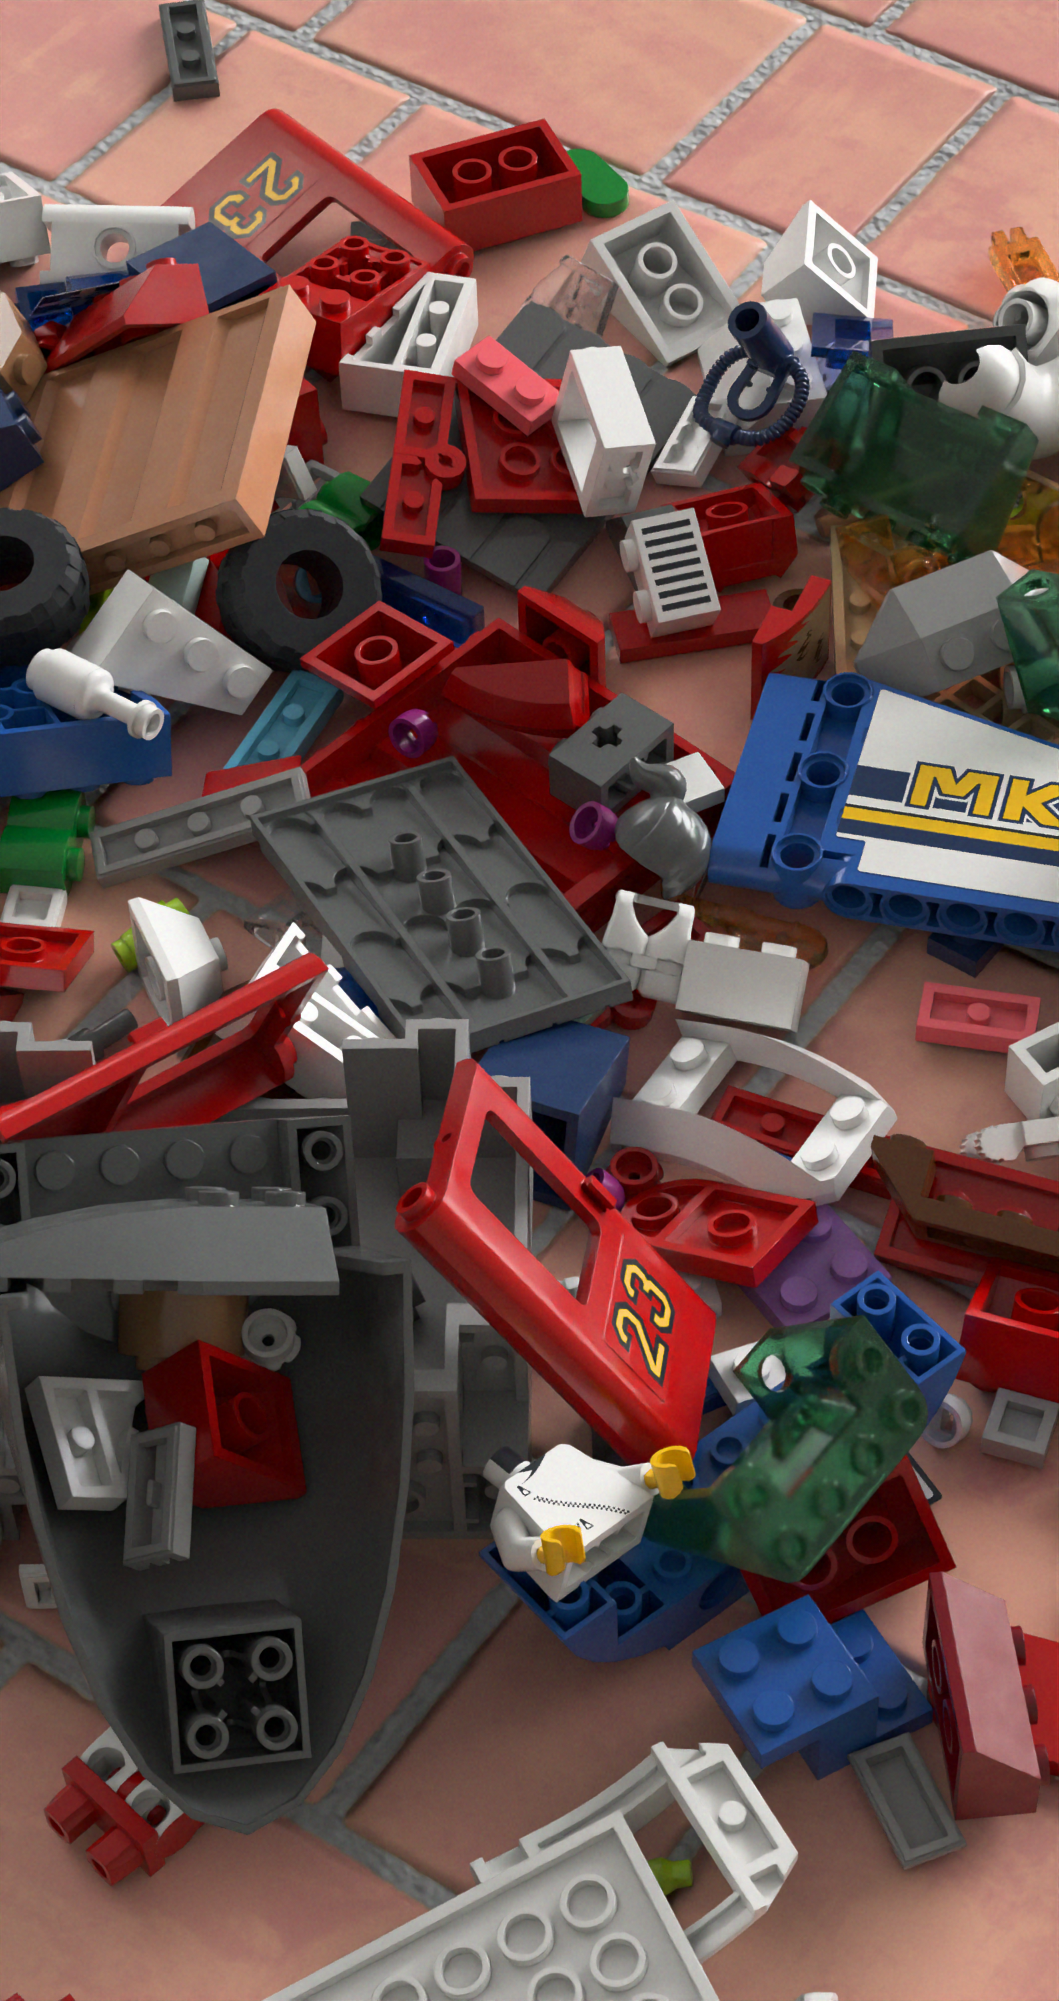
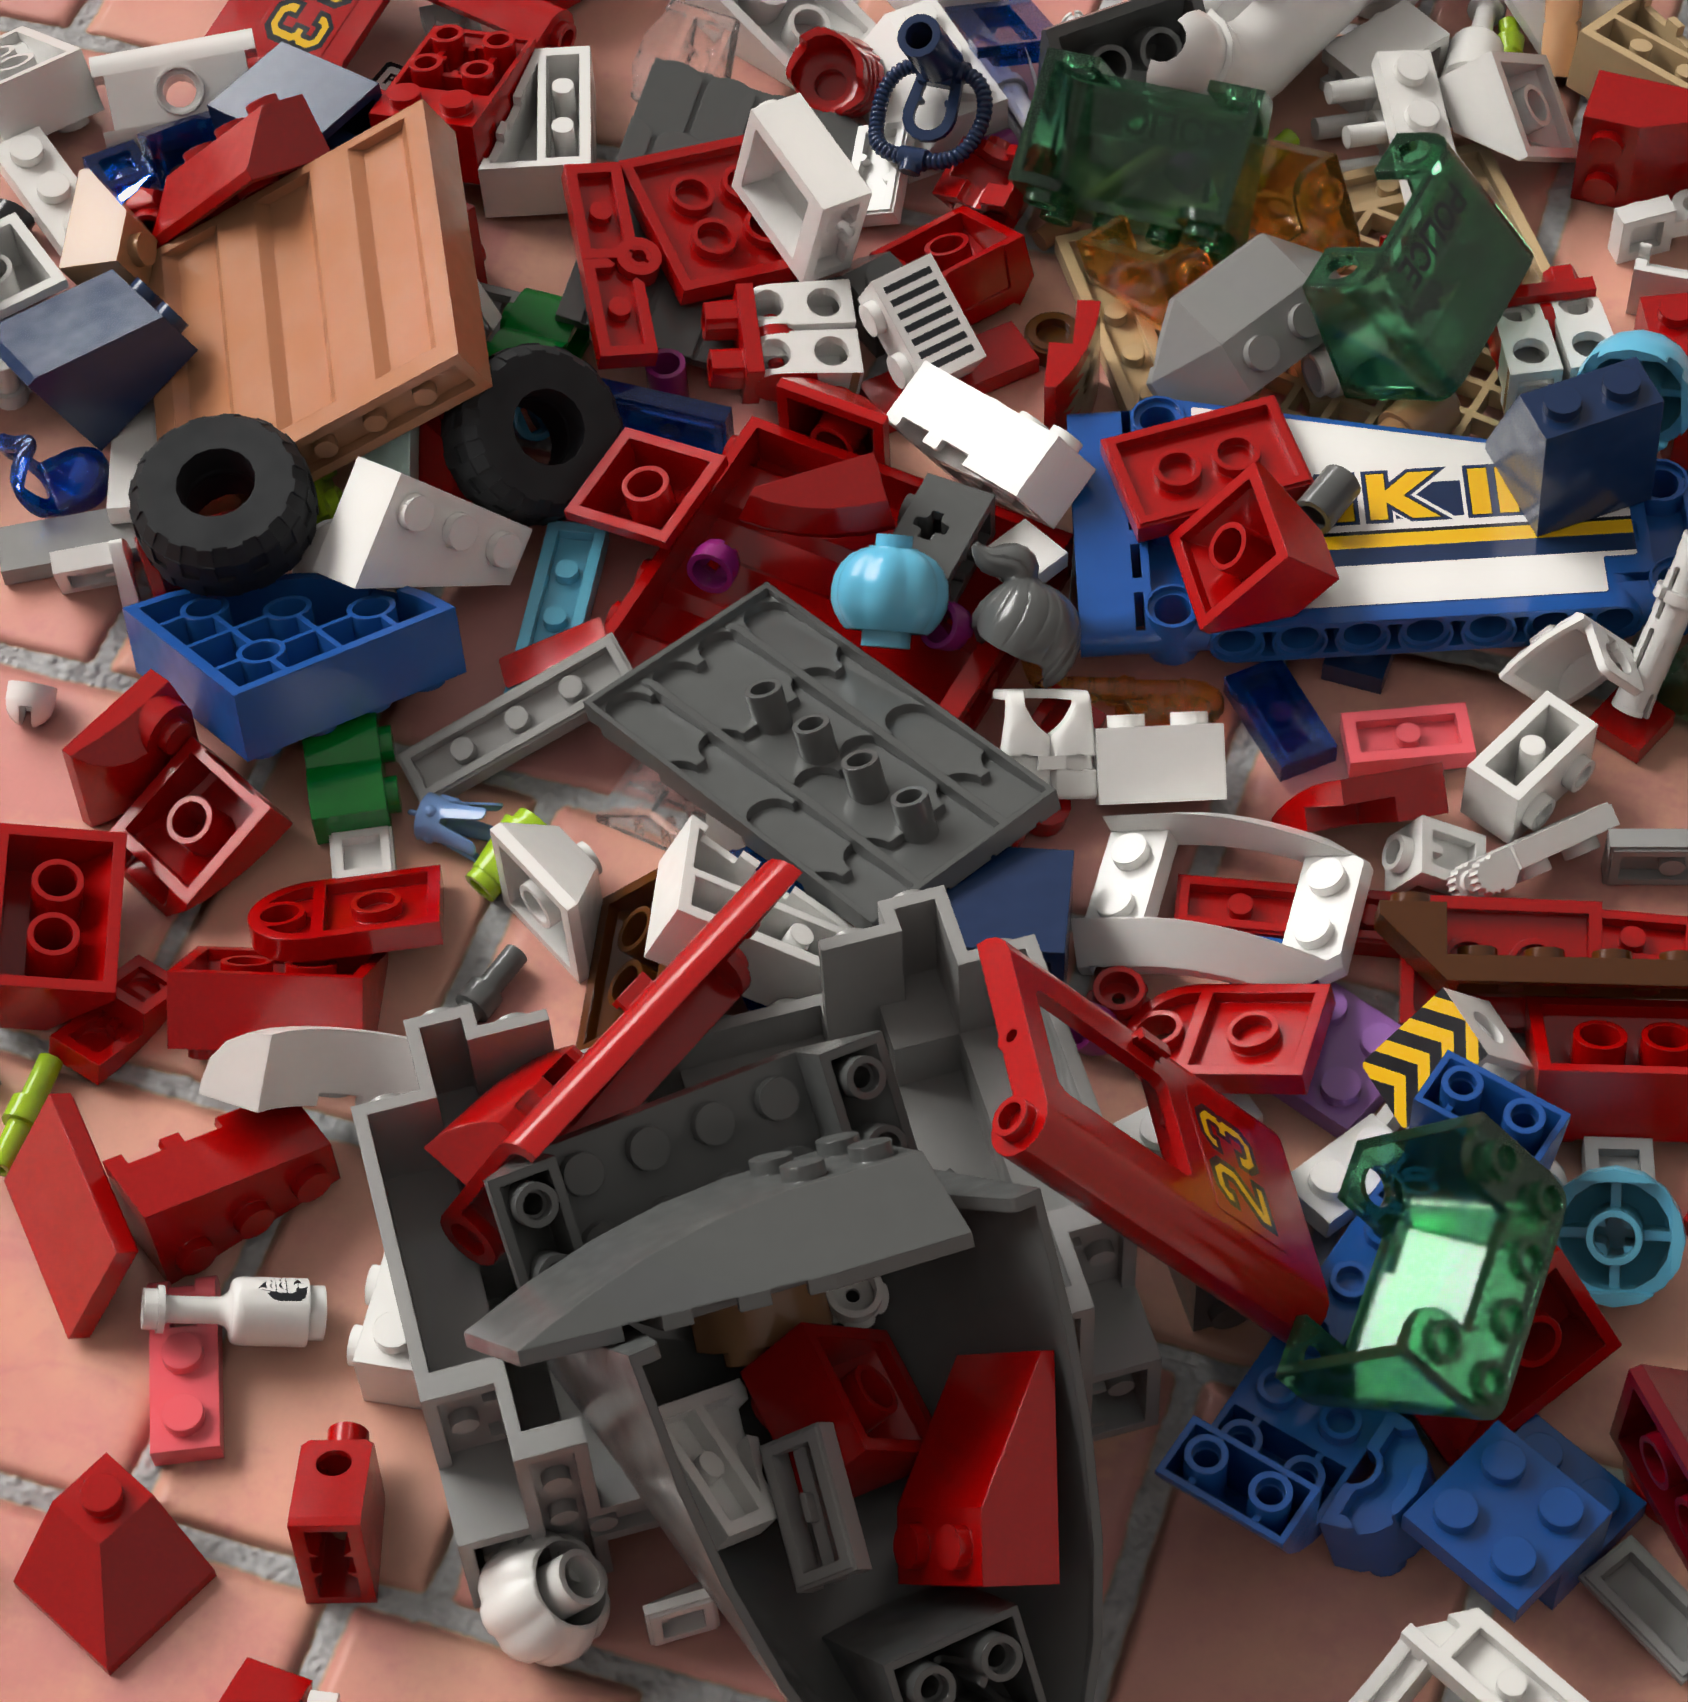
camera: 15 degrees left, 5 degrees up
(72, 298) = (166, 156): black sticker -> none
(88, 692) = (359, 604): white piece -> none
(110, 894) = (448, 819): none -> medium blue piece
(309, 1519) = (985, 1479): none -> red slope
(506, 384) = (676, 158): coral plate -> none
(549, 785) = (889, 592): none -> medium azure plant
(553, 553) = (783, 333): none -> hips
(575, 1513) = (1250, 1400): white torso -> none
(664, 1646) = (1367, 1516): none -> blue cylinder
(685, 343) = (835, 72): none -> red hair
(690, 682) = (991, 445): none -> white wedge
(870, 975) = (1280, 719): none -> clear blue plate
(871, 742) = (1183, 463): none -> red tile
(877, 821) = (1251, 555): none -> red slope
(897, 1255) = (1444, 1023): none -> piece
(916, 1057) = (1368, 799): none -> red slope
(954, 1114) = (1426, 854): none -> white bracket
(965, 789) = (1330, 496): none -> dark grey hinge
(985, 1472) = (1621, 1234): none -> medium azure cylinder

